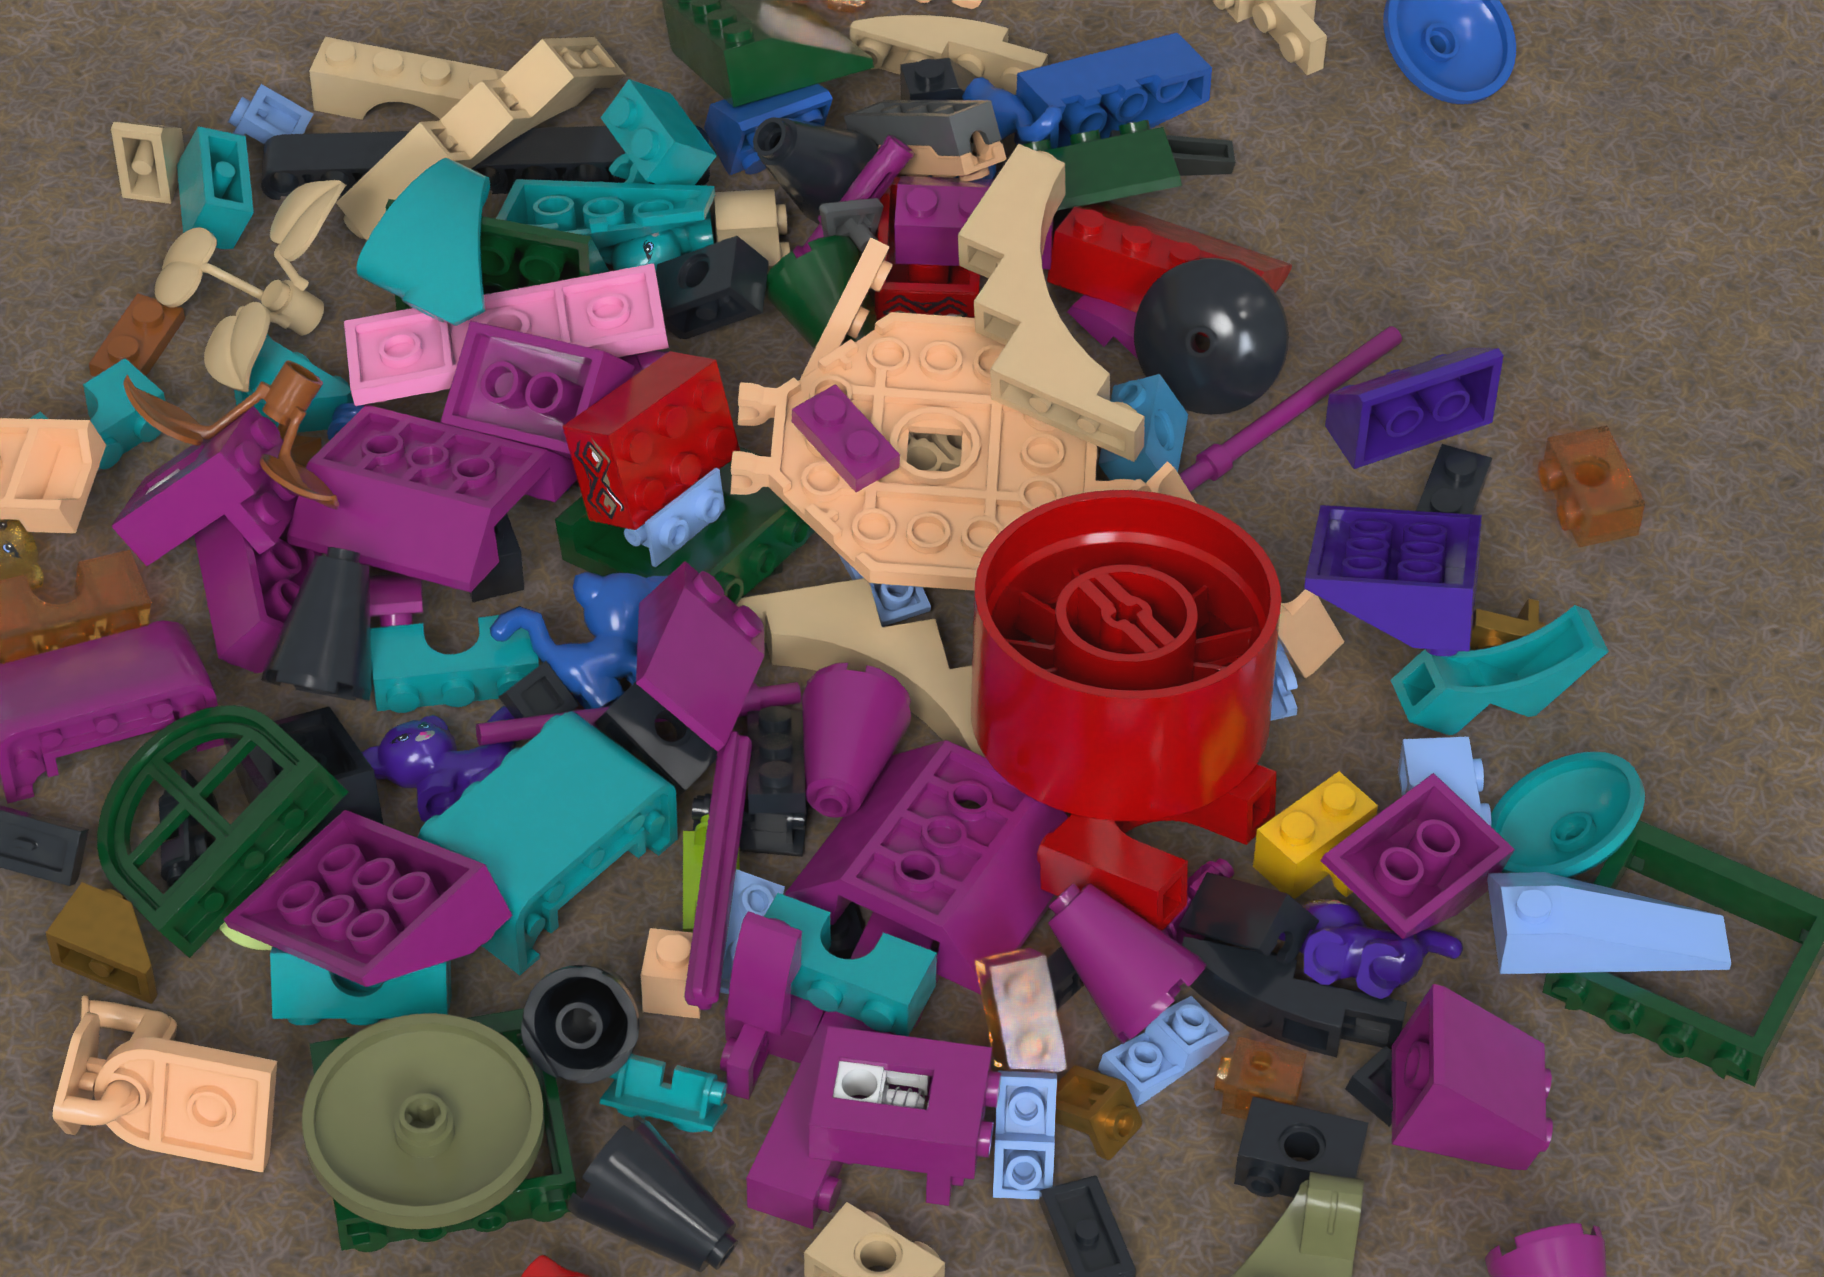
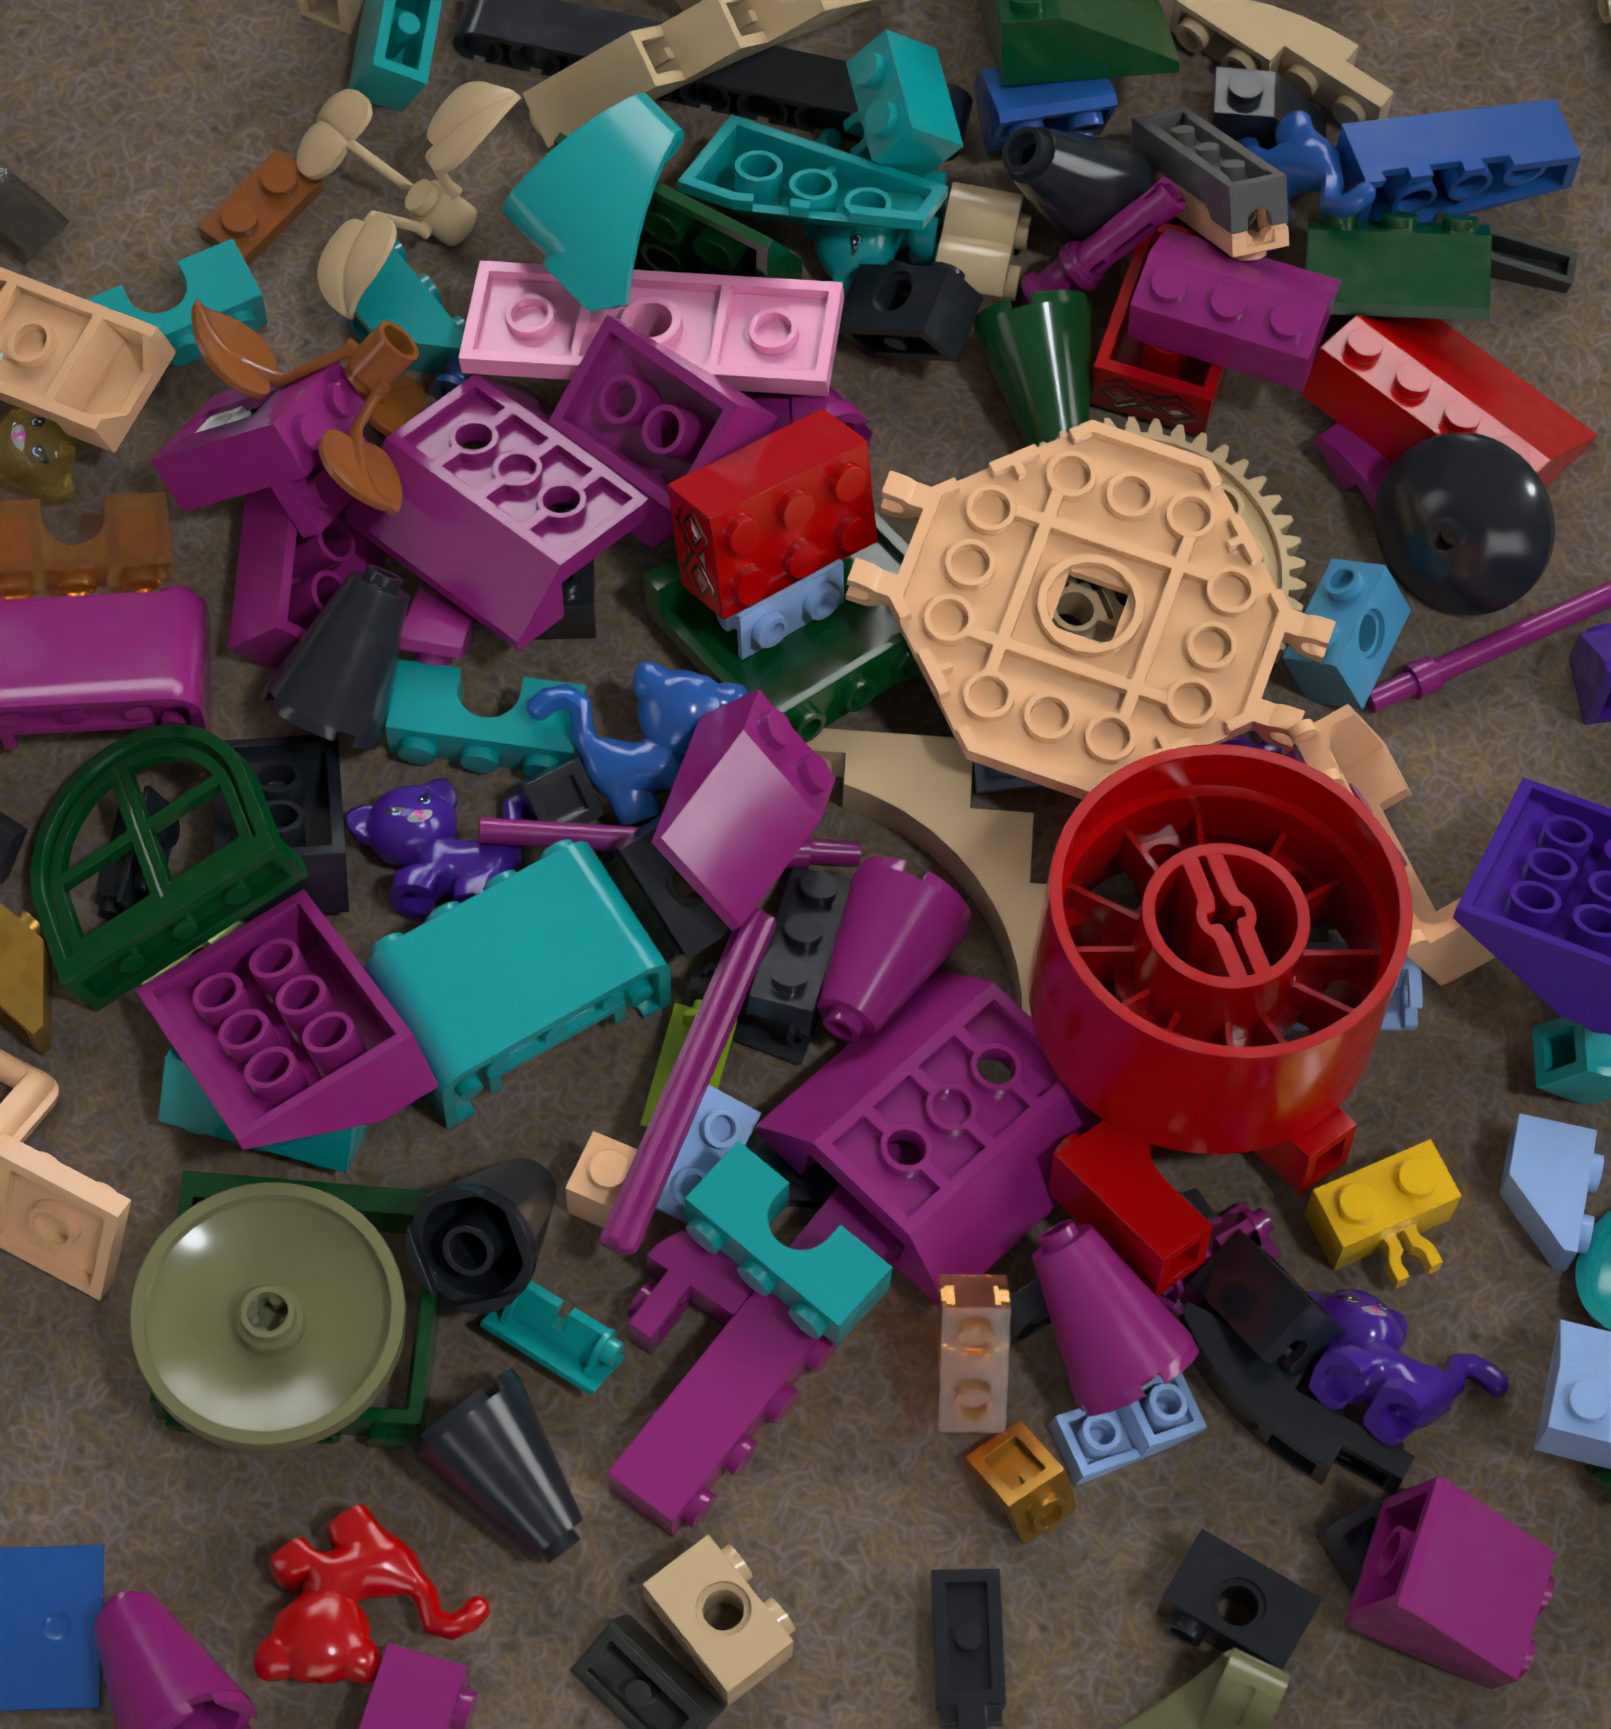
camera: 15 degrees right, 15 degrees up
(763, 972) = (692, 1238): magenta slope -> none
(845, 438) = (988, 575): magenta plate -> none
(849, 314) = (1050, 397): light nougat plate -> none
(853, 219) = (1093, 273): dark grey piece -> none
(892, 1122) = (848, 1484): magenta brick -> none
(1024, 1134) = (935, 1496): light blue slope -> none
(1042, 364) = (1238, 541): tan arch -> none
(1259, 1072) = (1221, 1500): clear orange brick -> none
(1420, 858) = (1483, 1282): magenta slope -> none

